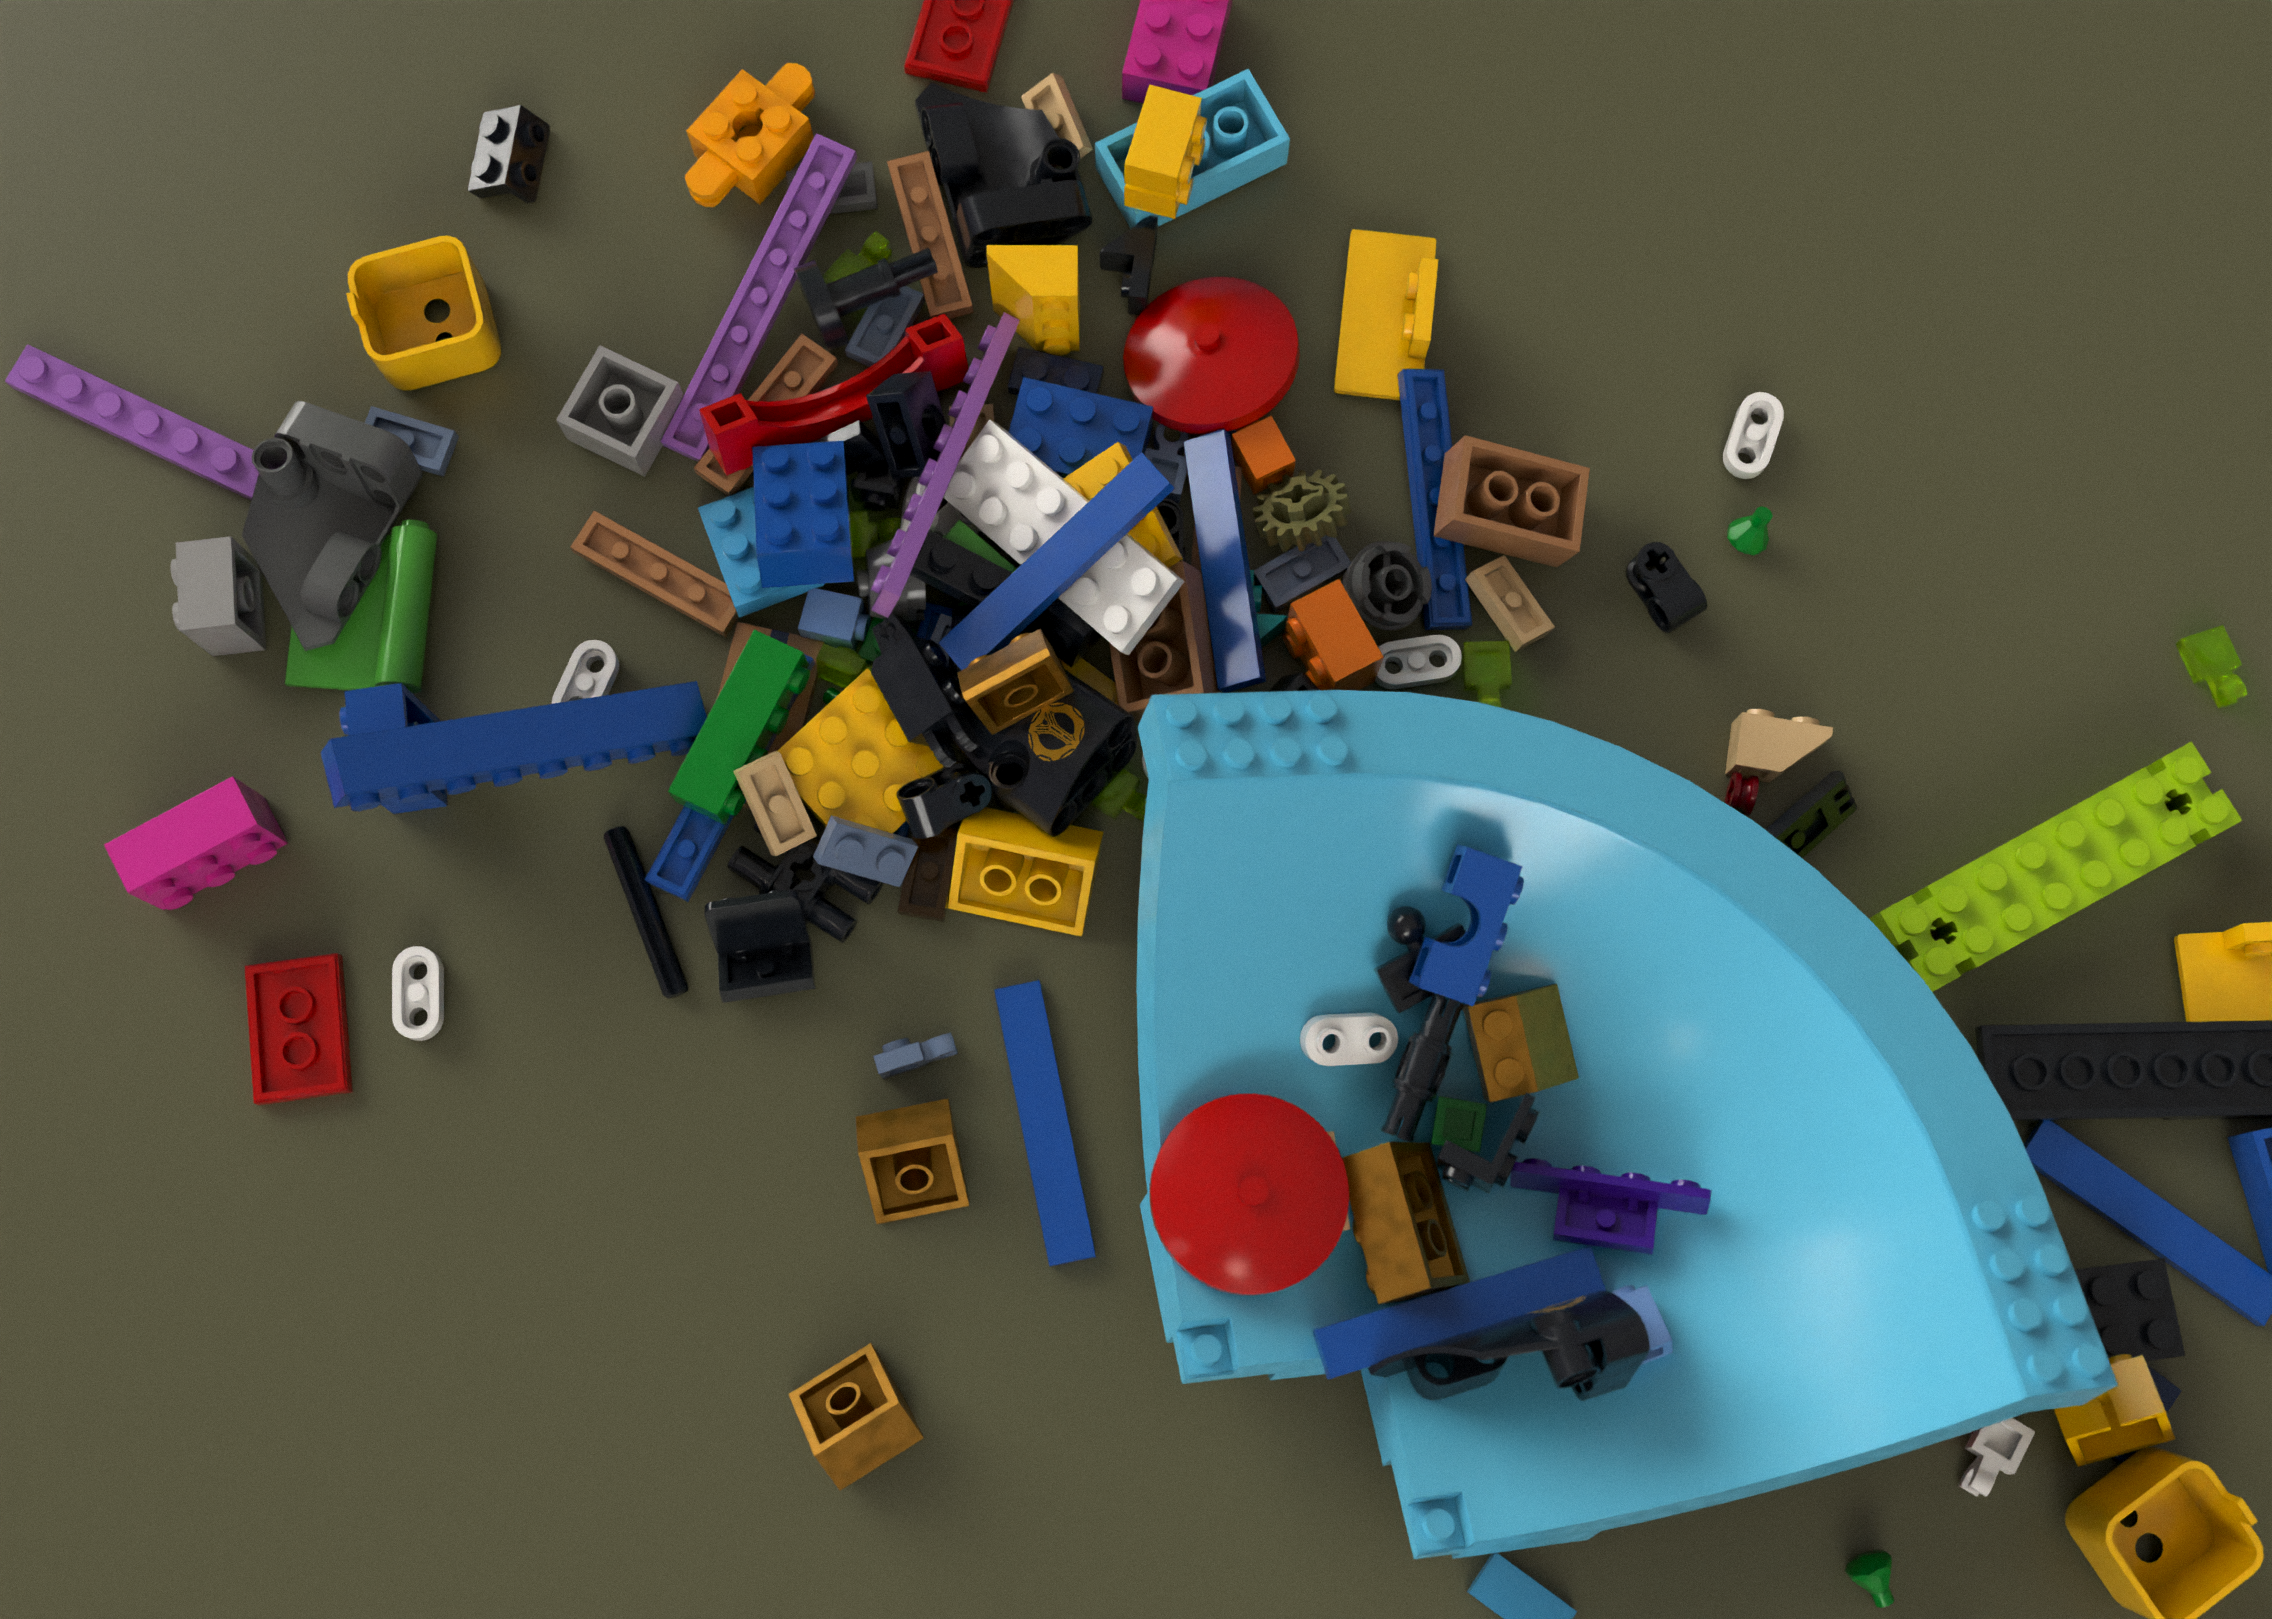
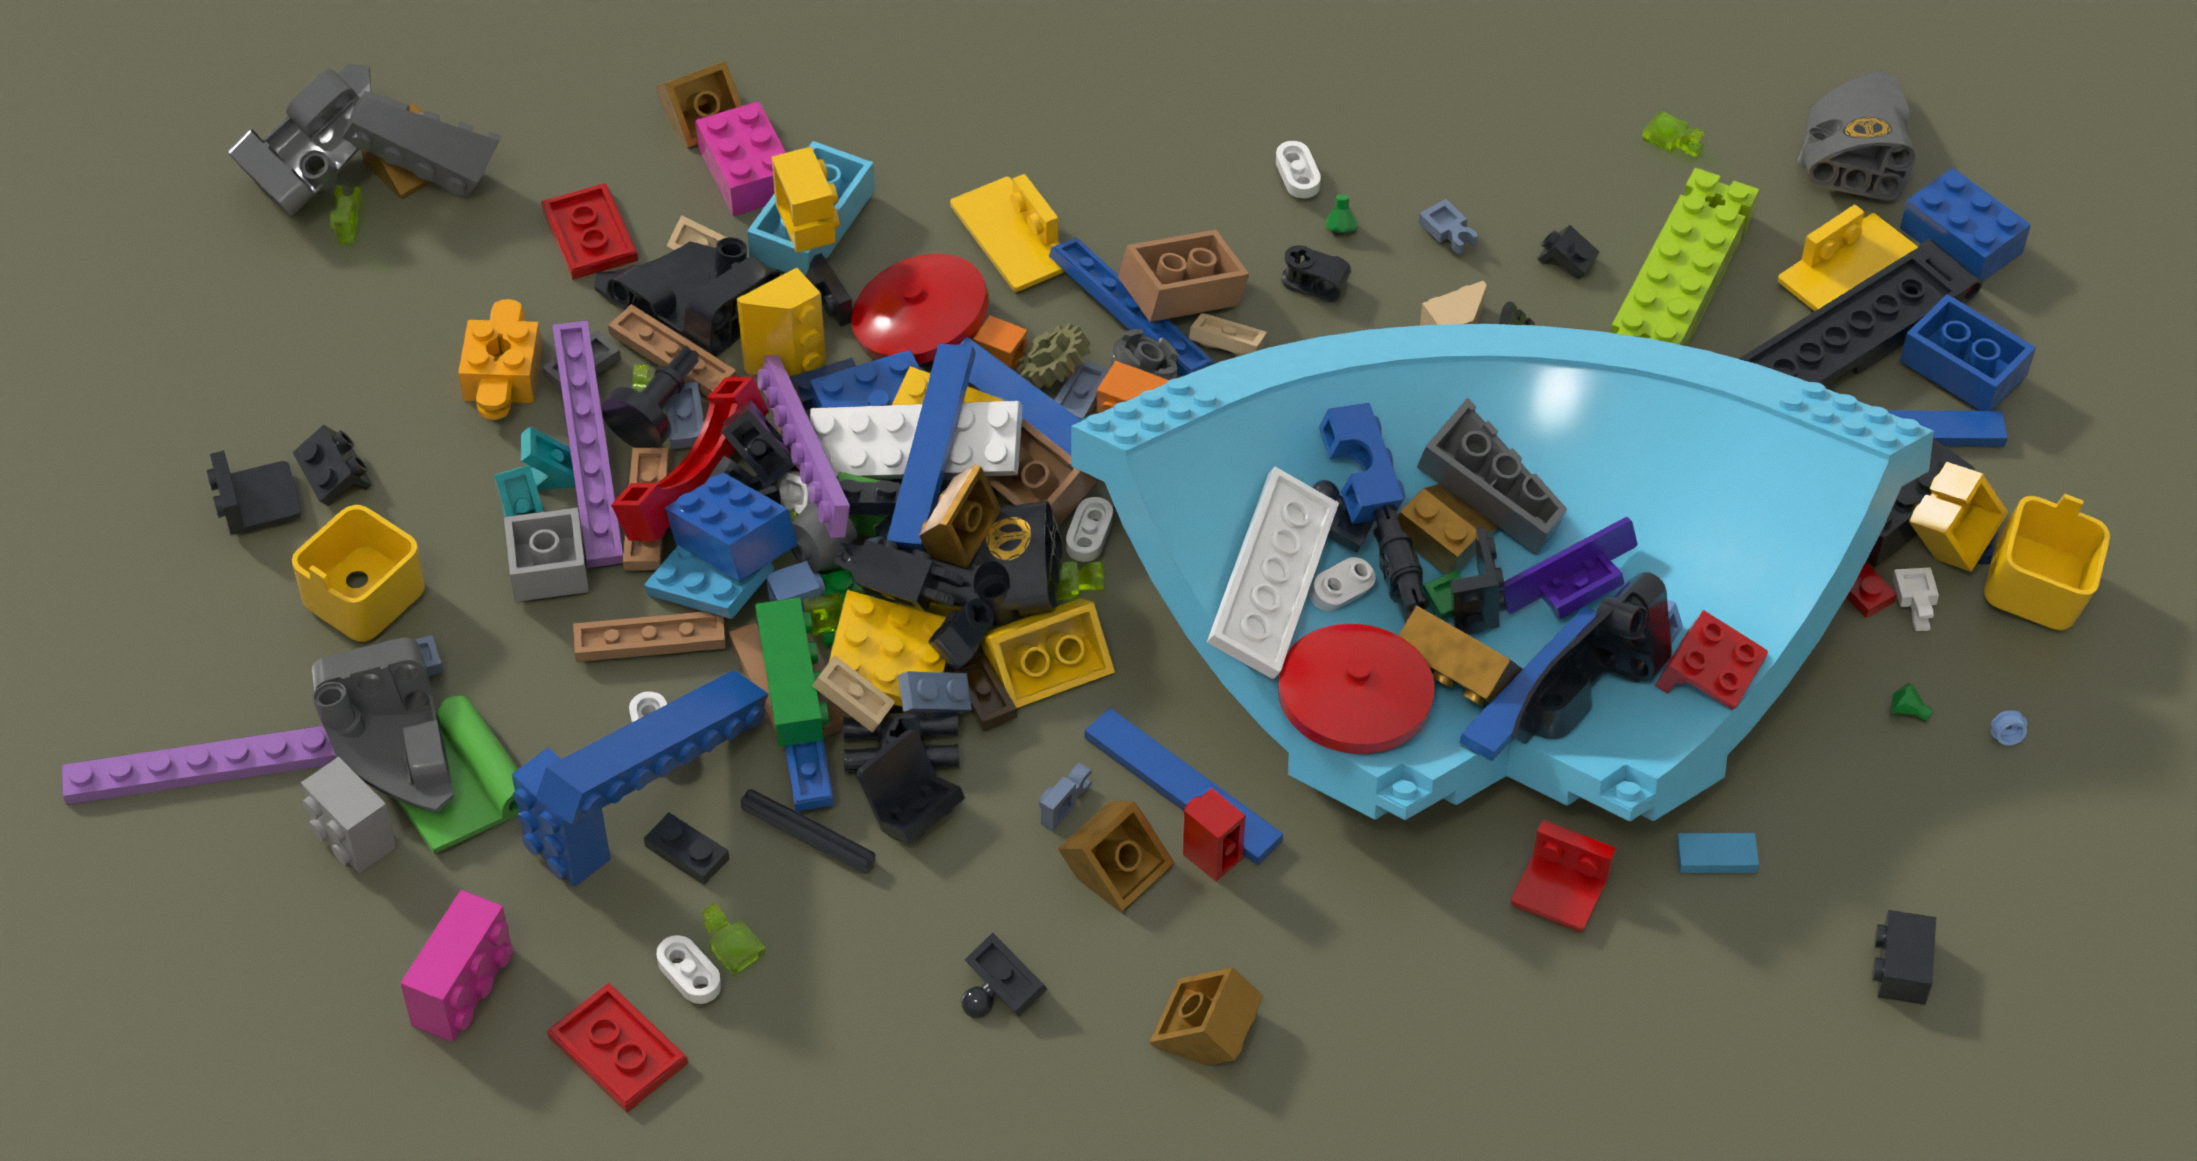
camera: 35 degrees left, 25 degrees down
(406, 139) = (254, 495): none -> black bracket
(484, 993) = (732, 944): none -> clear neon green plate
(520, 848) = (686, 848): none -> black plate
(645, 327) = (518, 492): none -> teal slope
(700, 1222) = (1004, 977): none -> black plate
(703, 288) = (548, 460): none -> teal slope
(1012, 1217) = (1213, 834): none -> red brick
(1264, 997) = (1273, 573): none -> white plate
(1329, 1523) = (1564, 876): none -> red bracket
(1604, 1013) = (1491, 479): none -> dark grey wedge
(1653, 1440) = (1714, 661): none -> red bracket
(1860, 613) = (1446, 222): none -> sand blue plate
(1967, 743) = (1569, 250): none -> black bracket

